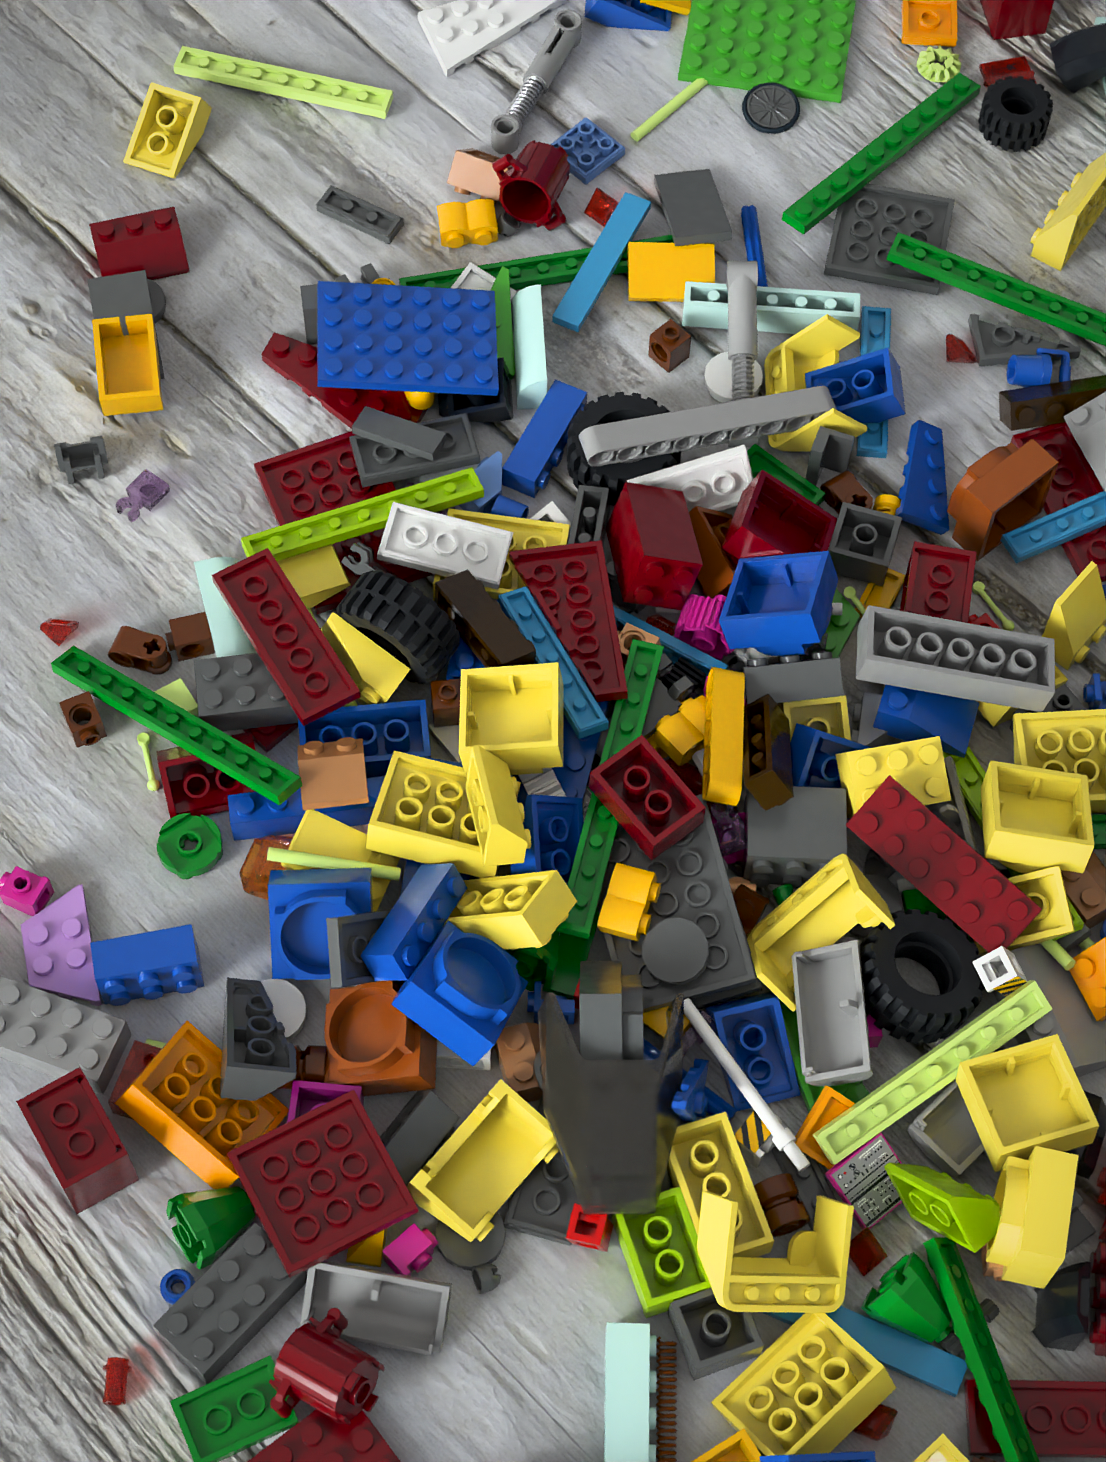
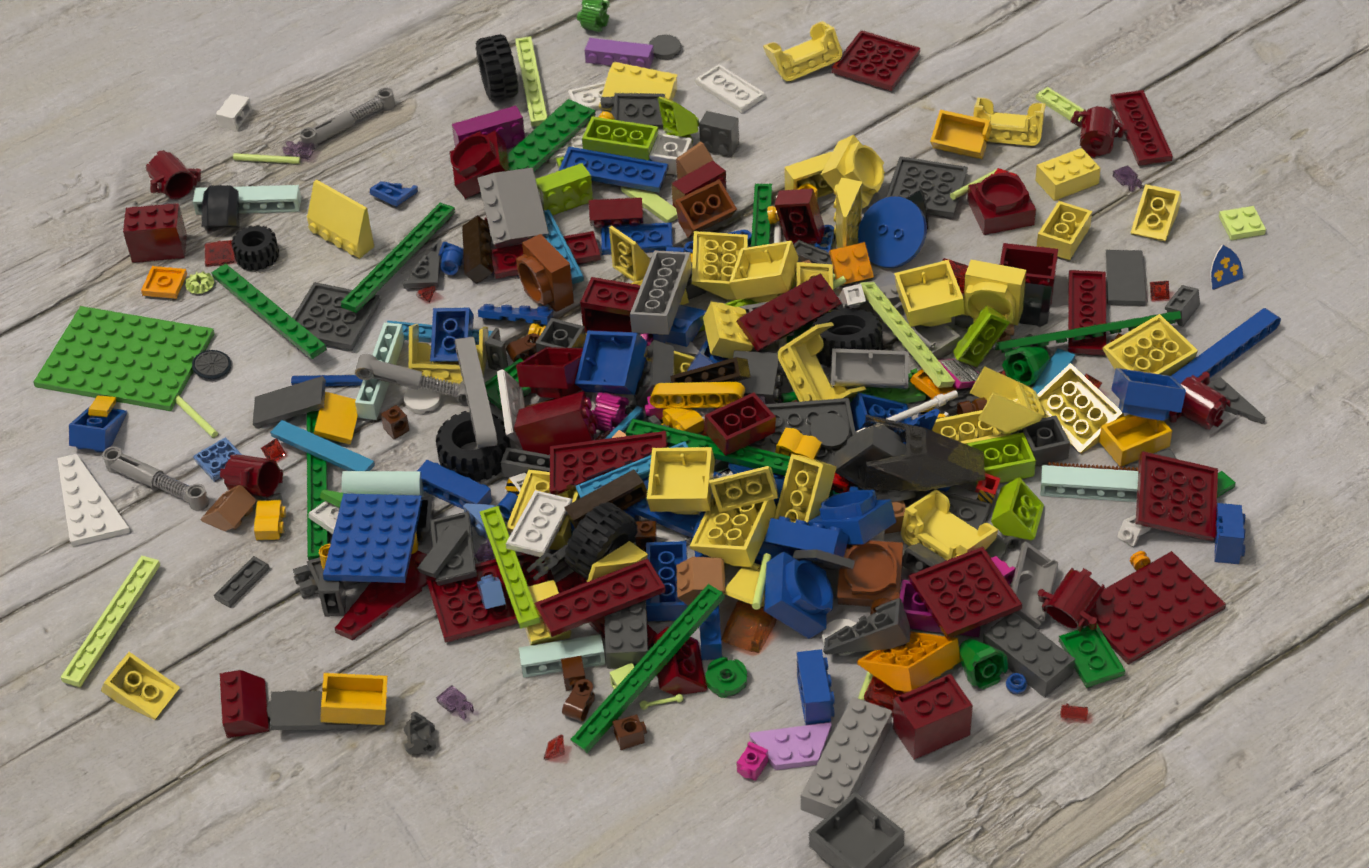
camera: 80 degrees left, 15 degrees down
(322, 497) = (491, 591): none -> medium blue slope
(540, 1282) = (1017, 510): none -> lime slope

